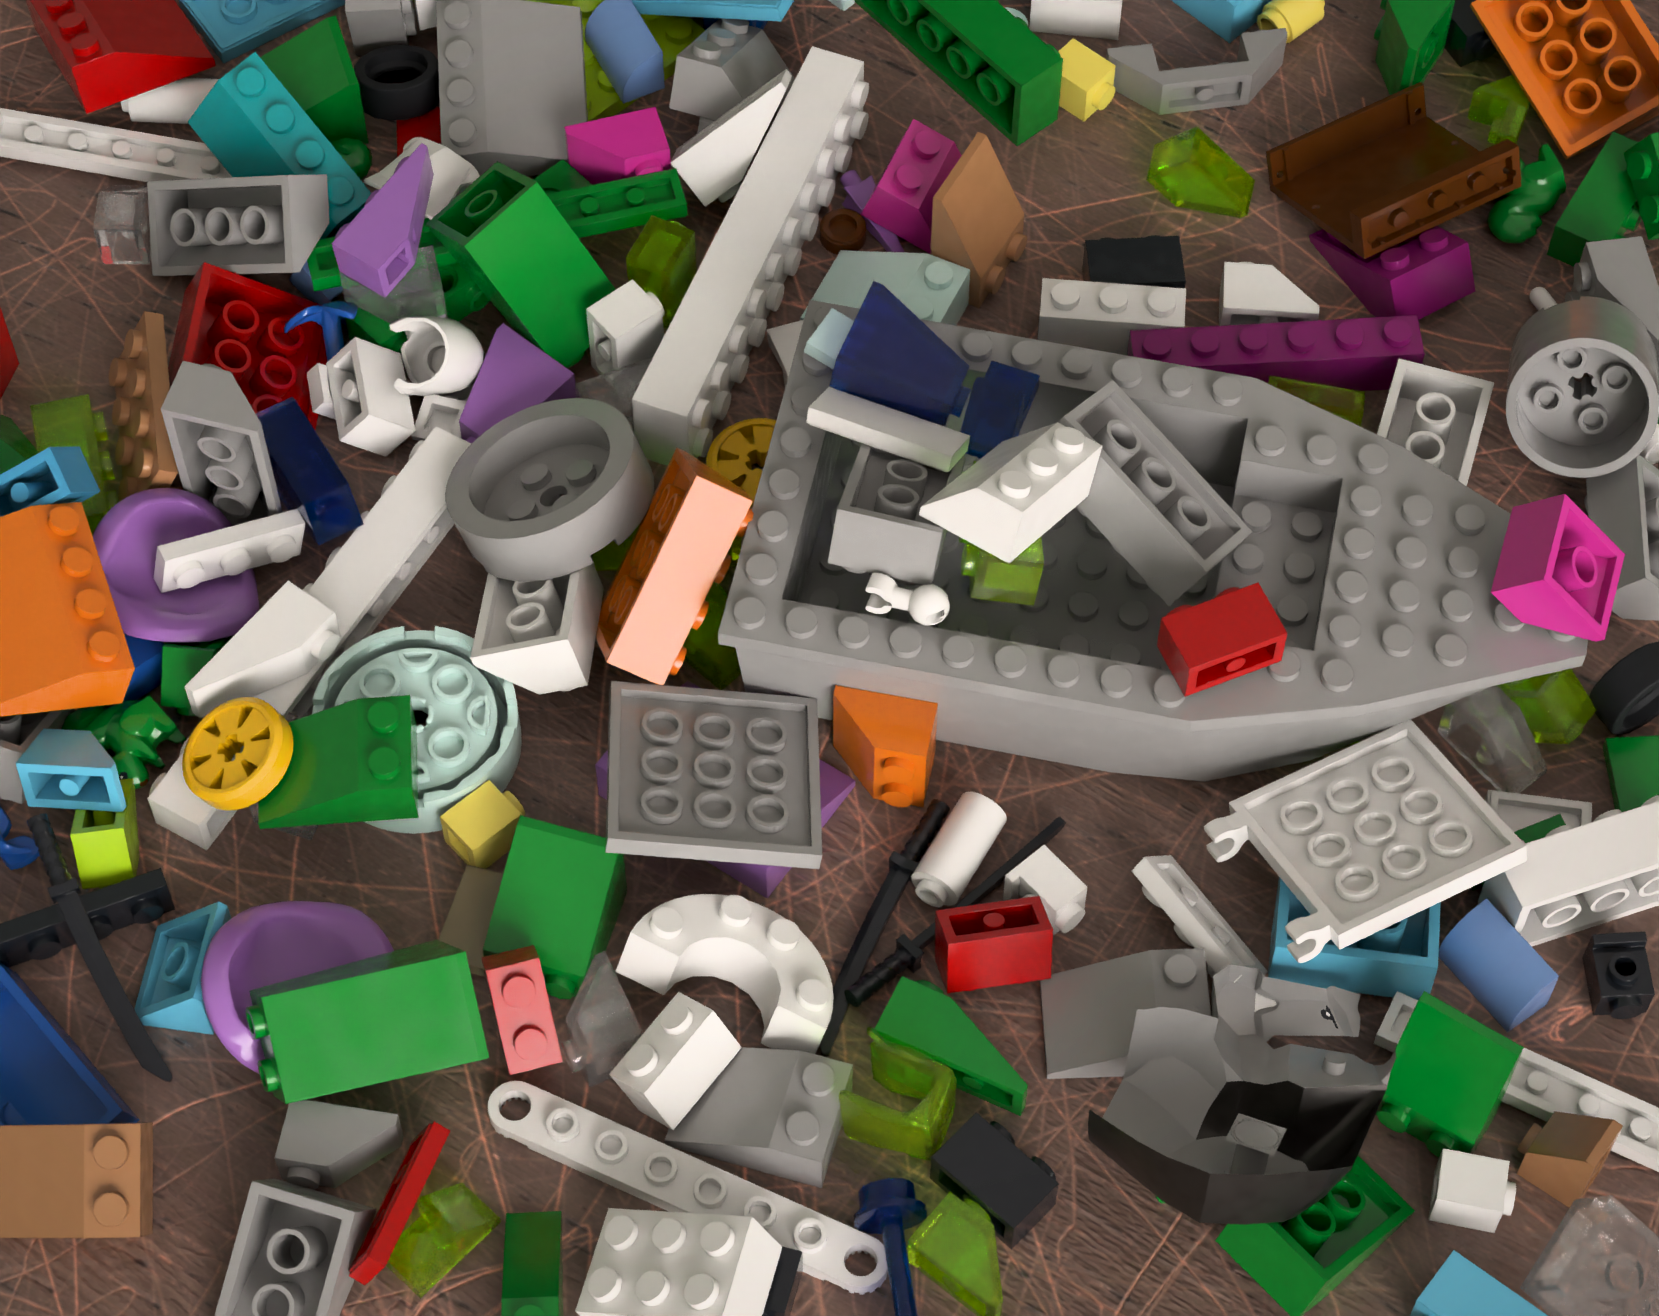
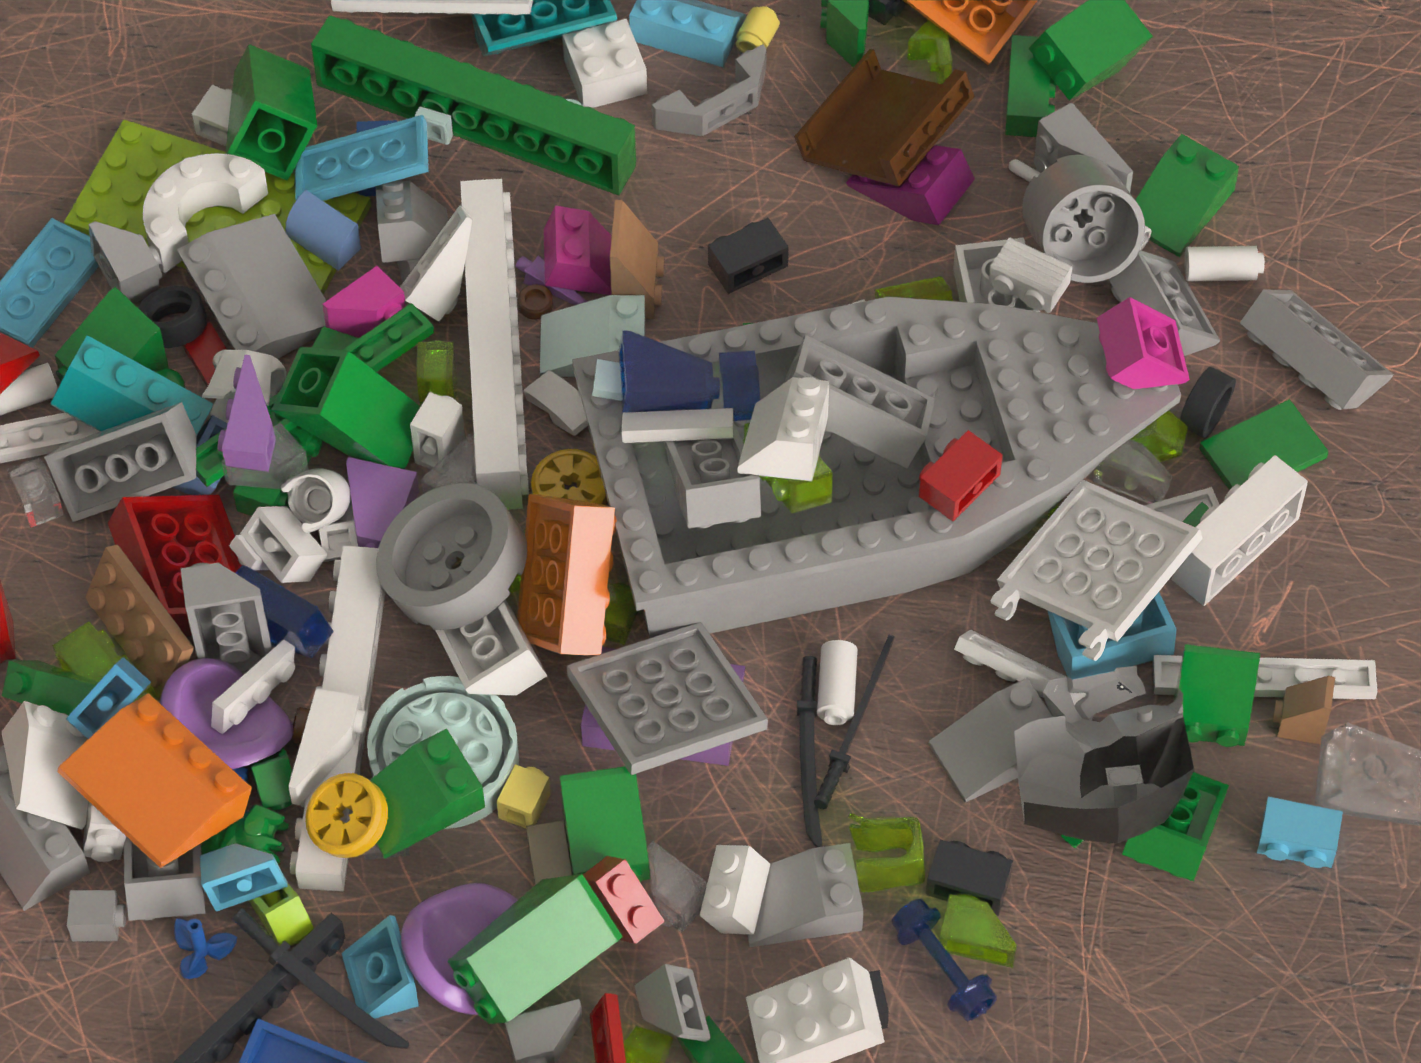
camera: 25 degrees left, 0 degrees up
(330, 318) = (225, 501): blue plant -> none
(514, 1175) = (673, 1002): none -> light grey slope
(681, 1181) = (778, 963): white plate -> none
(742, 946) = (745, 801): white brick -> none
(886, 743) = (758, 633): orange slope -> none
(926, 604) = (764, 529): white arm -> none
(935, 1025) = (885, 796): green slope -> none
(993, 944) = (893, 731): red brick -> none
(1054, 882) = (907, 685): white brick -> none
(1085, 80) = (649, 131): light yellow brick -> none
(1104, 313) = (750, 292): white brick -> none
(1200, 175) = (755, 169): clear neon green slope -> none
(1261, 295) = (843, 242): white slope -> none
(1335, 353) = (895, 262): magenta brick -> none
(1471, 1191) = (1257, 758): white brick -> none
(1473, 430) = (1029, 275): none -> white brick
(1498, 965) = (1207, 612): medium blue brick -> none
(1520, 211) = (976, 117): green animal -> none
(1605, 962) = (1269, 588): black brick -> none

